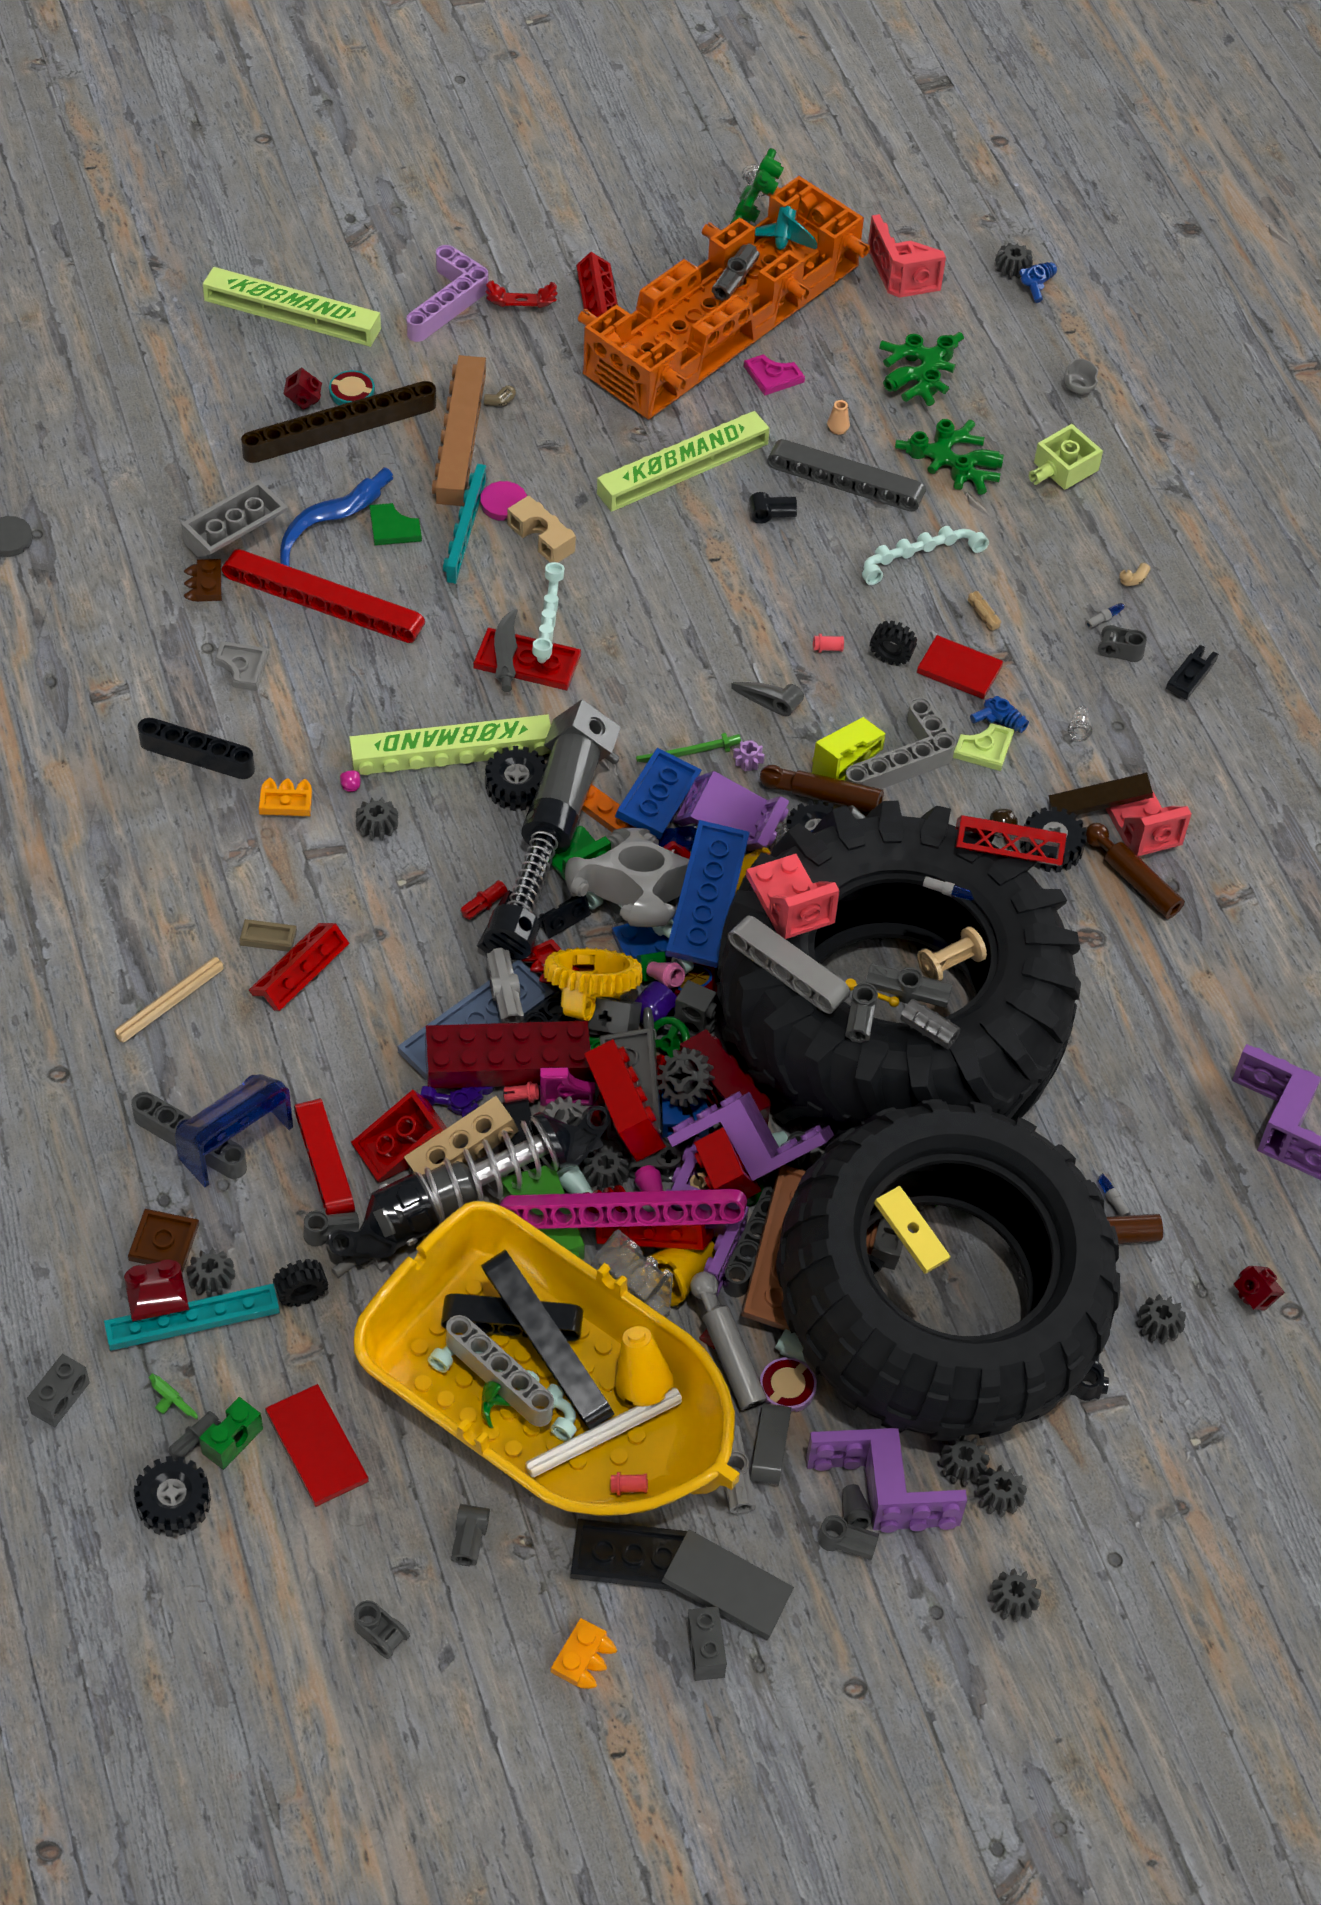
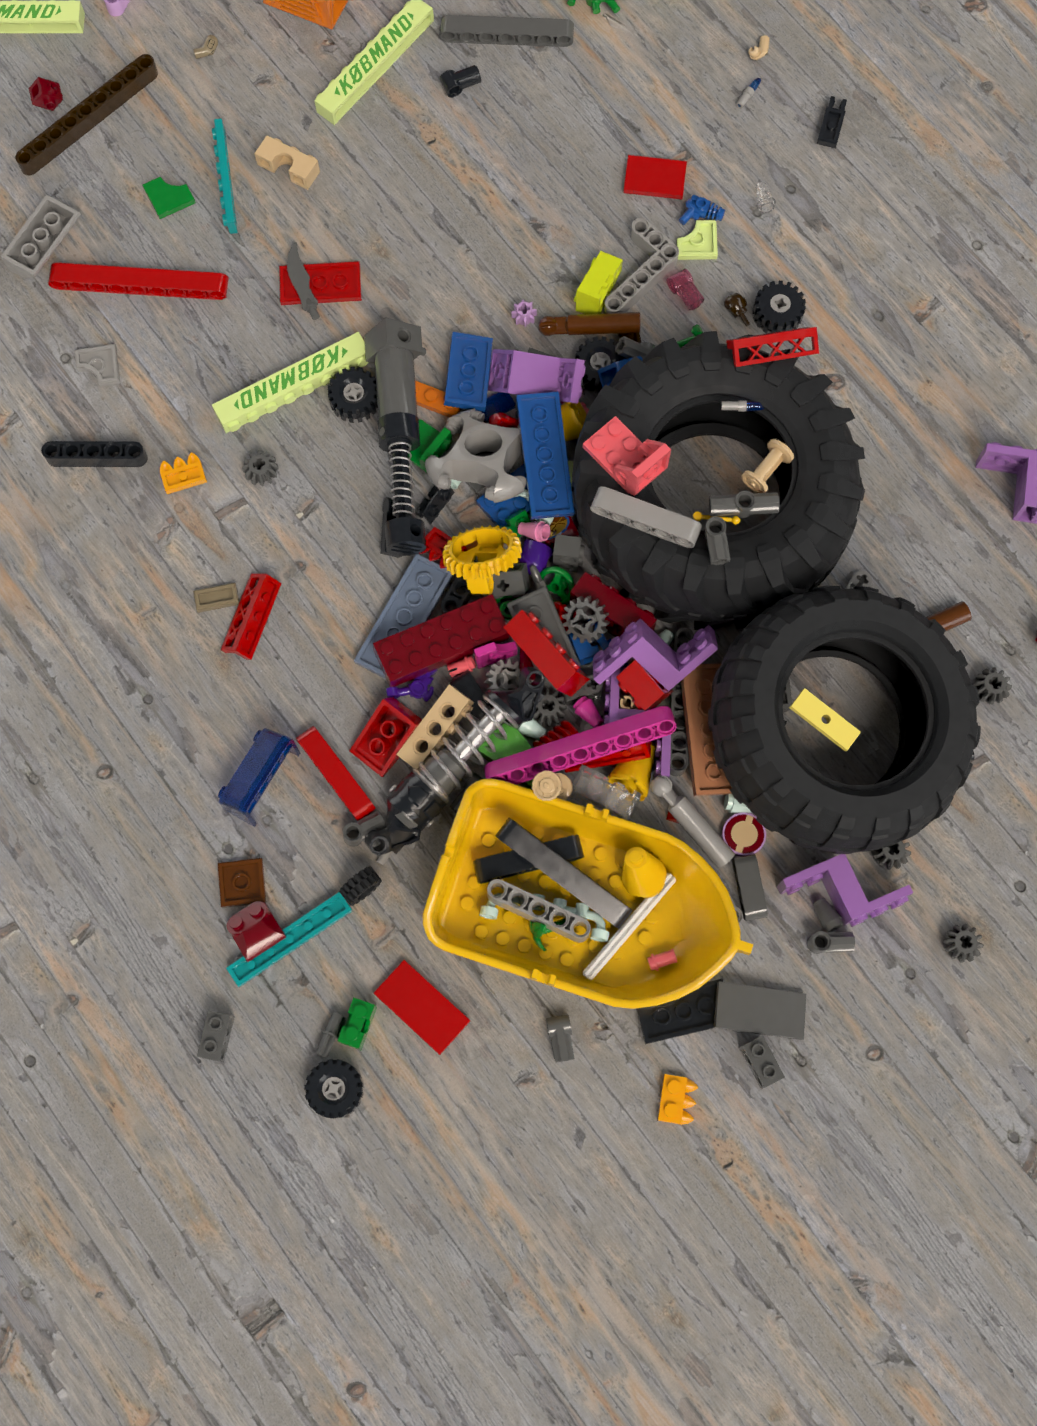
camera: 15 degrees left, 20 degrees up
(161, 1112) = (216, 783): dark grey beam -> none
(168, 999) = (163, 680): tan axle -> none
(170, 1396) = (300, 1010): bright green piece -> none
(201, 1276) = (281, 896): dark grey gear -> none
(206, 580) = (40, 298): reddish brown plate -> none
(350, 780) = (226, 441): dark pink hinge -> none
(351, 386) = (83, 78): tile -> none
(359, 498) = (115, 198): blue animal -> none
(382, 1633) = (527, 1137): dark grey piece -> none
(460, 430) = (188, 91): medium nougat brick -> none
(483, 900) = (369, 510): red axle -> none
(499, 497) = (244, 142): dark pink tile -> none
(505, 986) = (417, 583): light grey piece -> none
(543, 645) = (332, 274): light aqua bar -> none
(565, 1230) = (552, 785): none -> tan hose
(725, 742) = (500, 306): bright green sword -> none
(777, 699) = (521, 253): dark grey piece -> none
(828, 643) = (547, 190): coral pin -> none
(872, 573) = (590, 72): light aqua bar -> none
(888, 633) = (599, 175): black tyre -> none
(930, 1023) = (771, 531): flat silver axle -> none
(948, 783) = (682, 284): none -> clear pink piece
(984, 610) = (656, 119): tan axle -> none
(1001, 1490) = (917, 861): dark grey gear -> none
(1103, 795) = (803, 257): dark brown tile -> none
(1113, 1196) = (923, 596): light grey piece -> none
(1124, 644) = (773, 114): dark grey piece -> none
(1136, 872) = (849, 315): reddish brown piece -> none
(1148, 826) = (838, 268): coral bracket -> none

